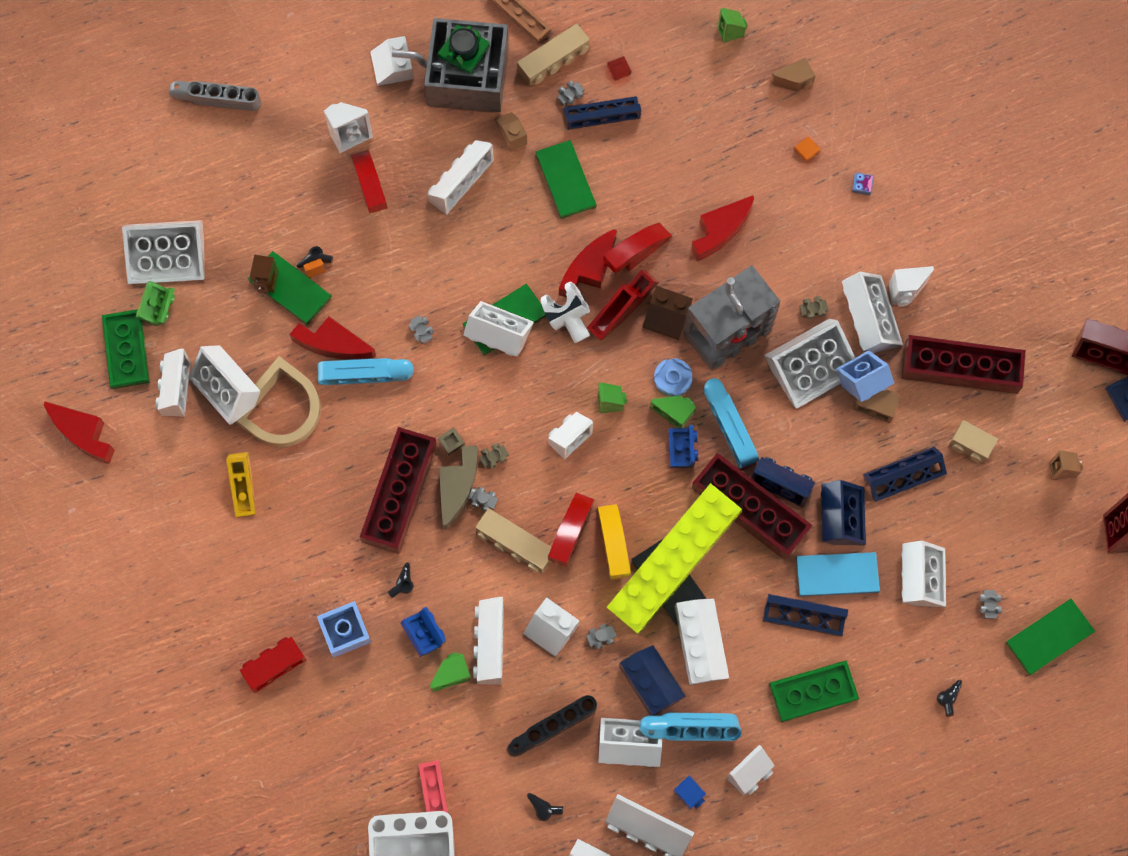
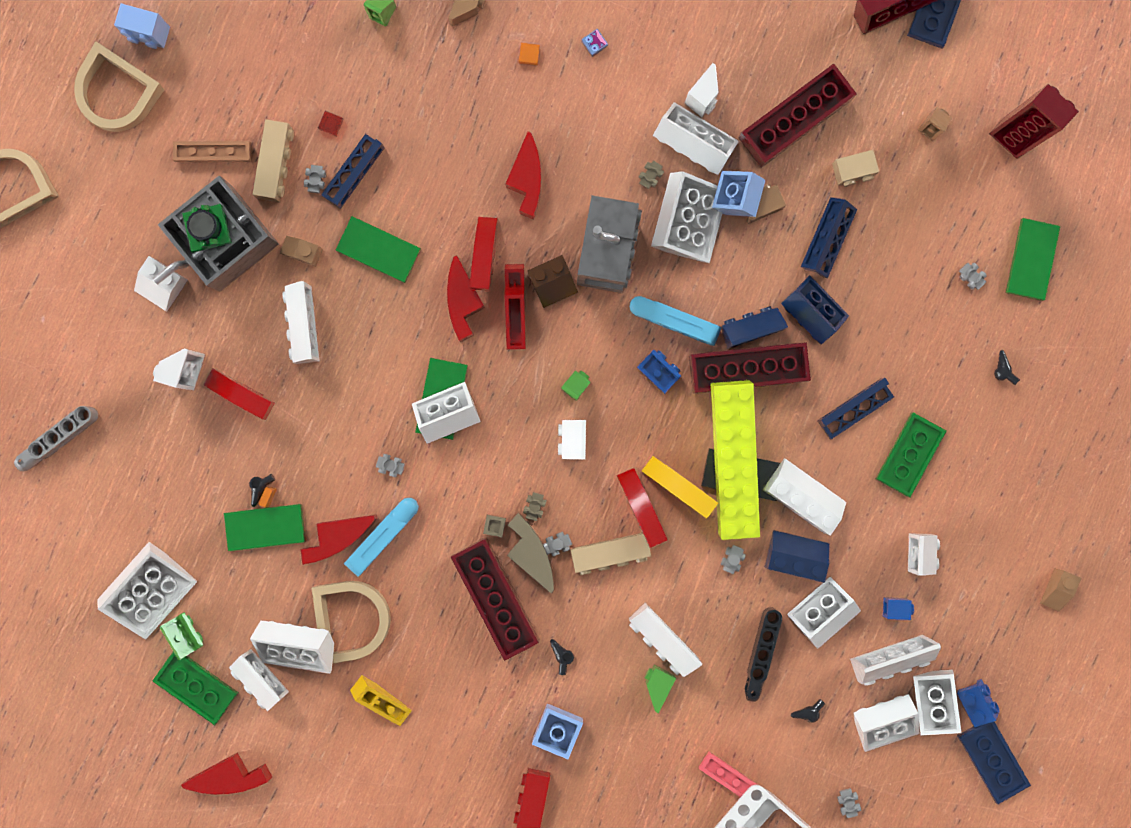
camera: 45 degrees left, 15 degrees up
(264, 274) = (238, 541): reddish brown brick -> none
(423, 632) = (612, 677): blue bracket -> none
(551, 627) = (694, 587): white slope -> none
(569, 314) = (484, 352): white connector -> none
(673, 377) = (601, 324): light blue tile -> none
(674, 409) = (628, 348): bright green slope -> none
(692, 726) = (857, 563): medium azure piece -> none
(837, 574) = (850, 356): medium azure tile -> none
(923, 574) = (910, 300): white slope -> none

